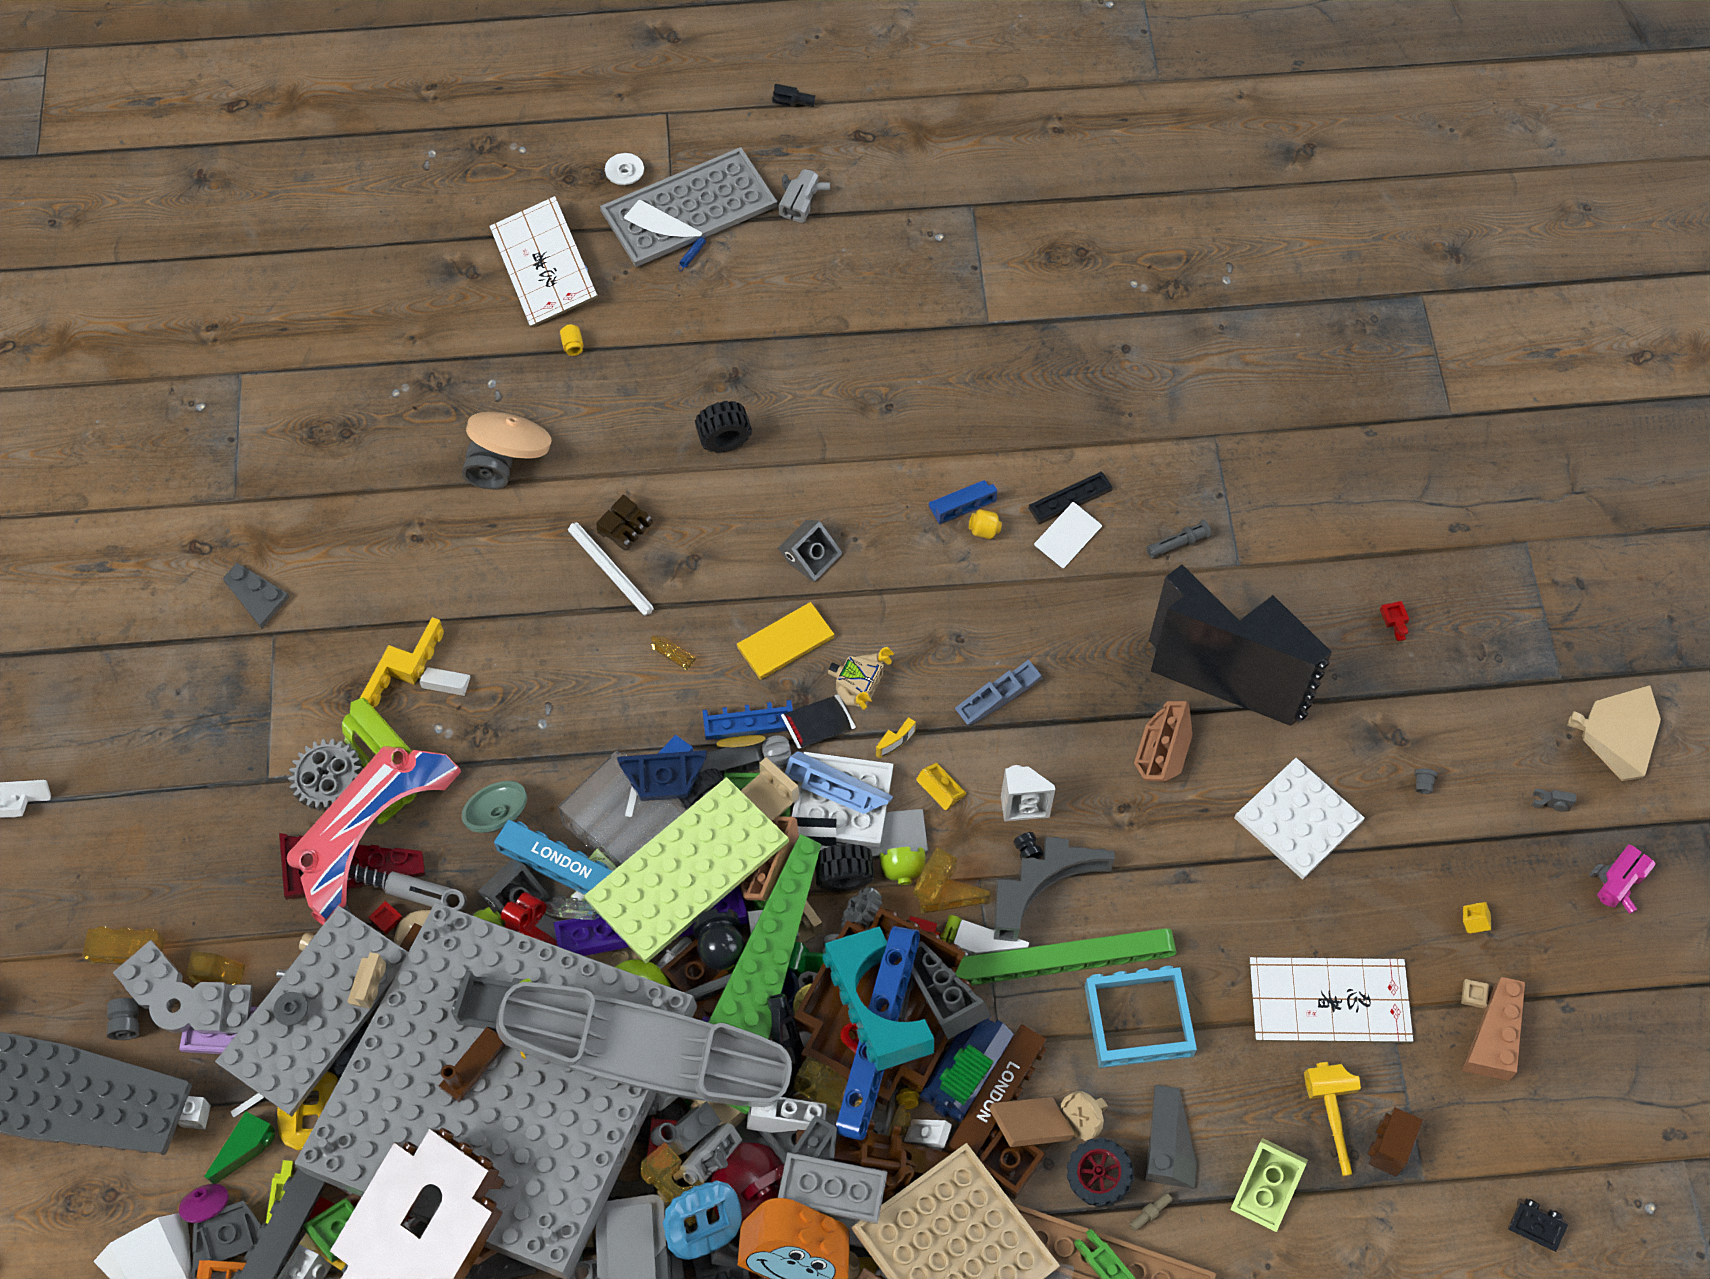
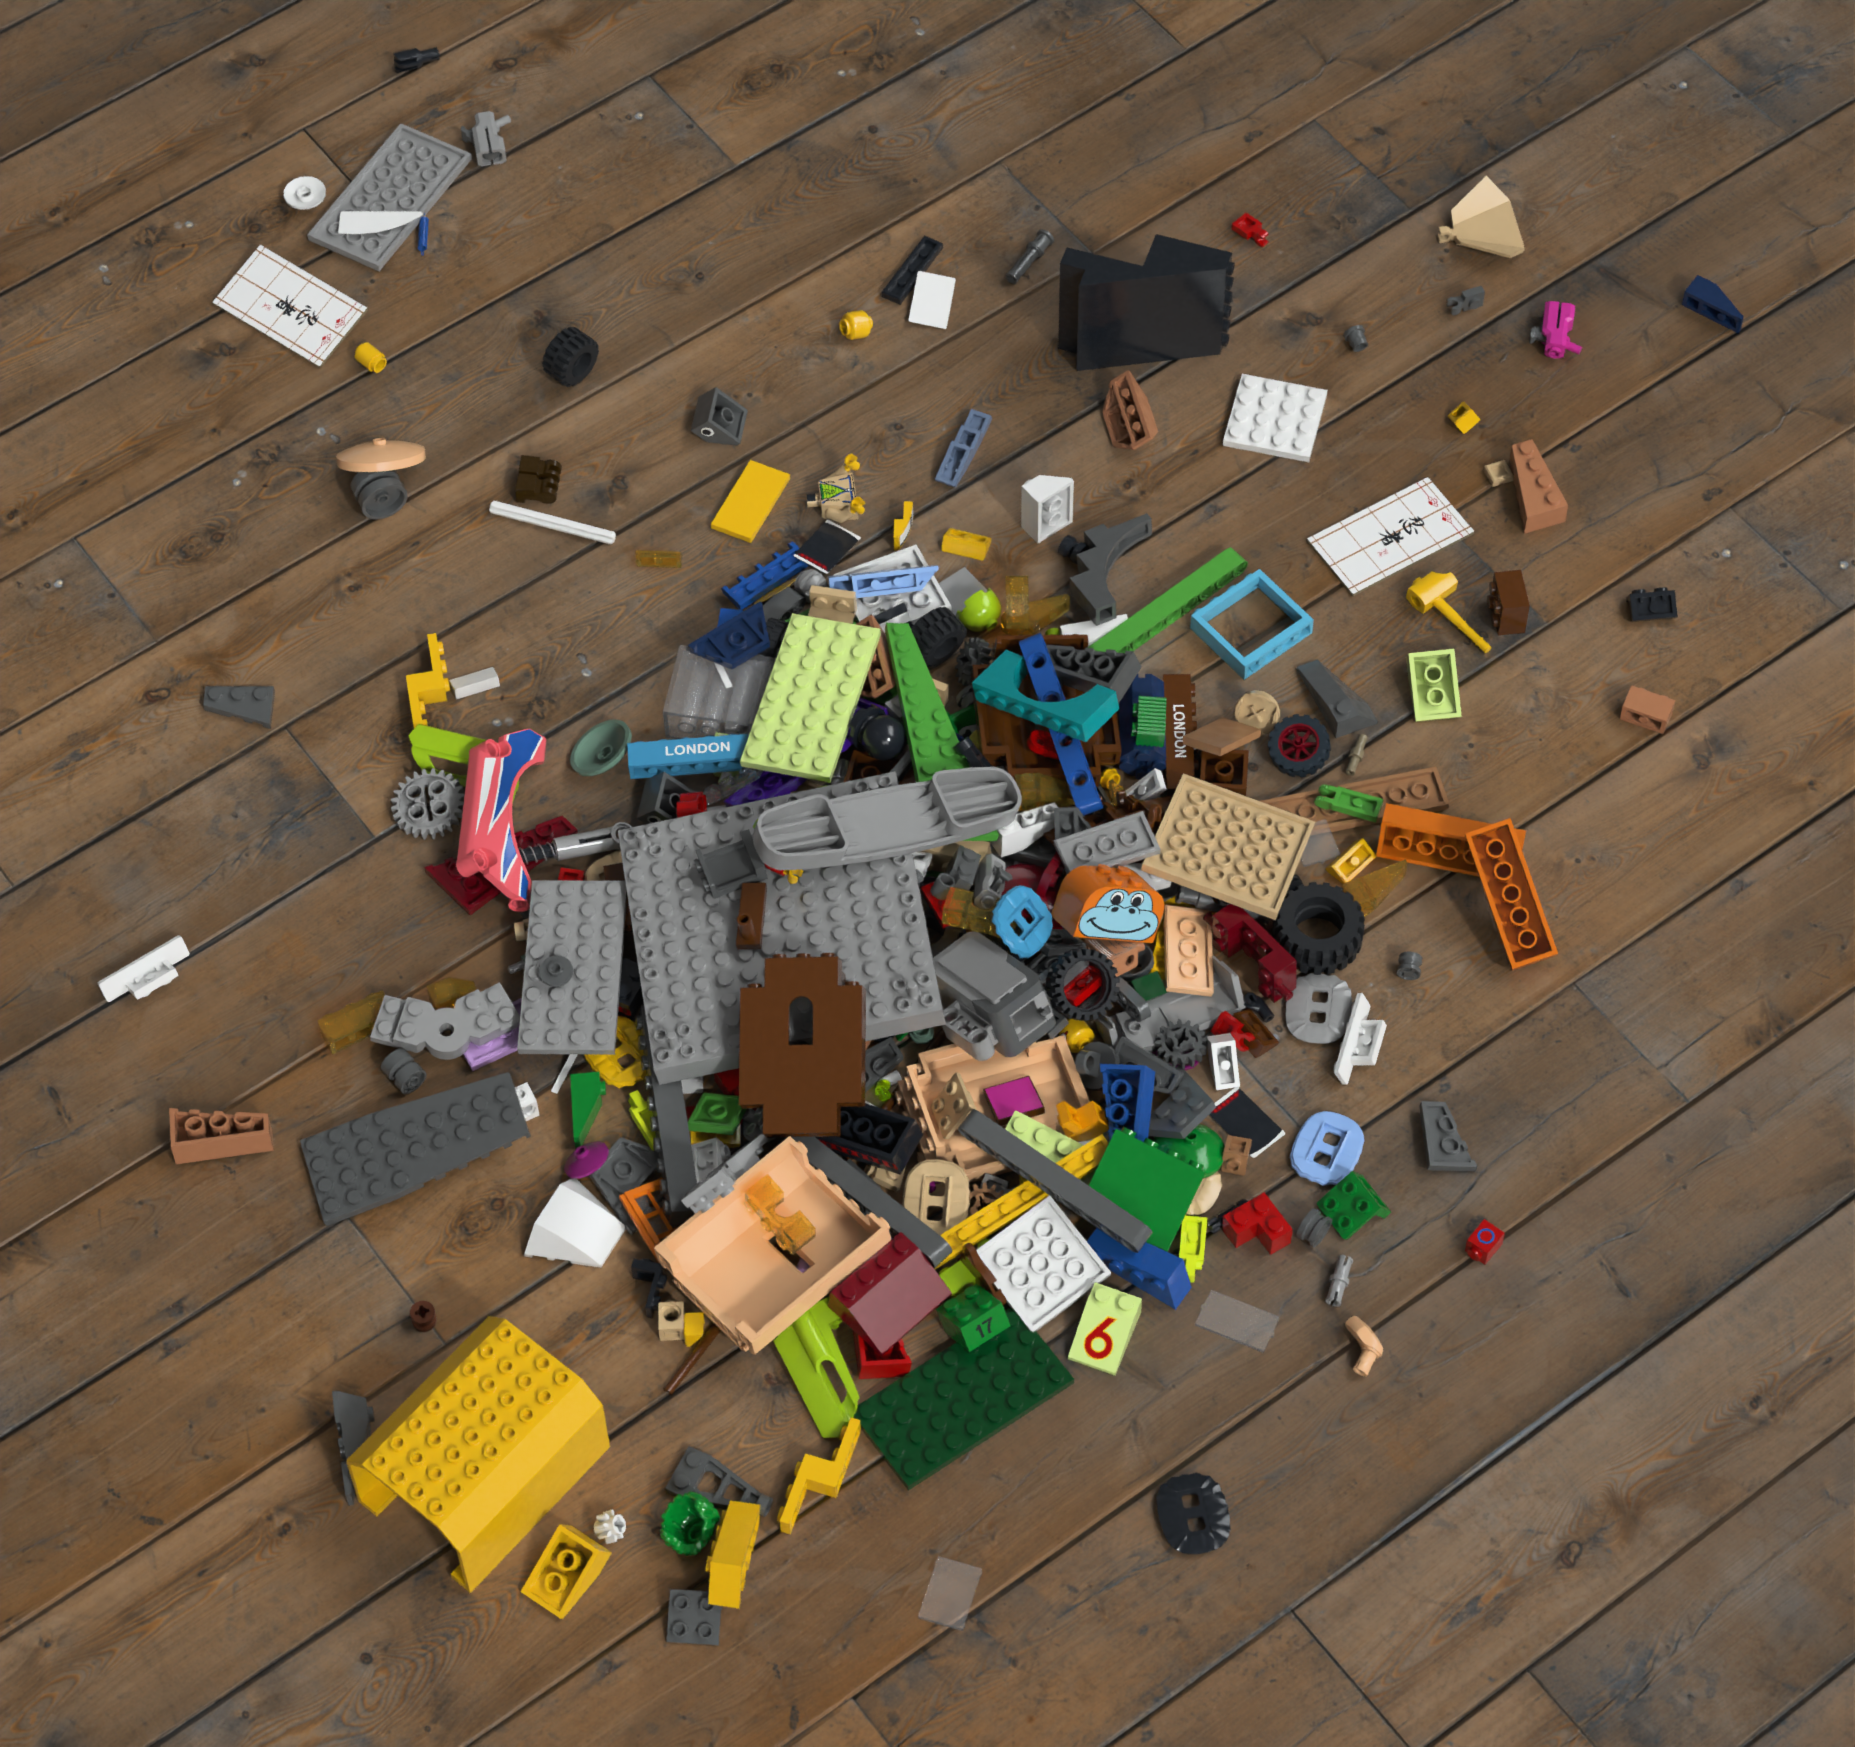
camera: 30 degrees left, 5 degrees down
(367, 981) = (606, 913): tan bracket -> none
(963, 501) = (822, 317): blue panel -> none

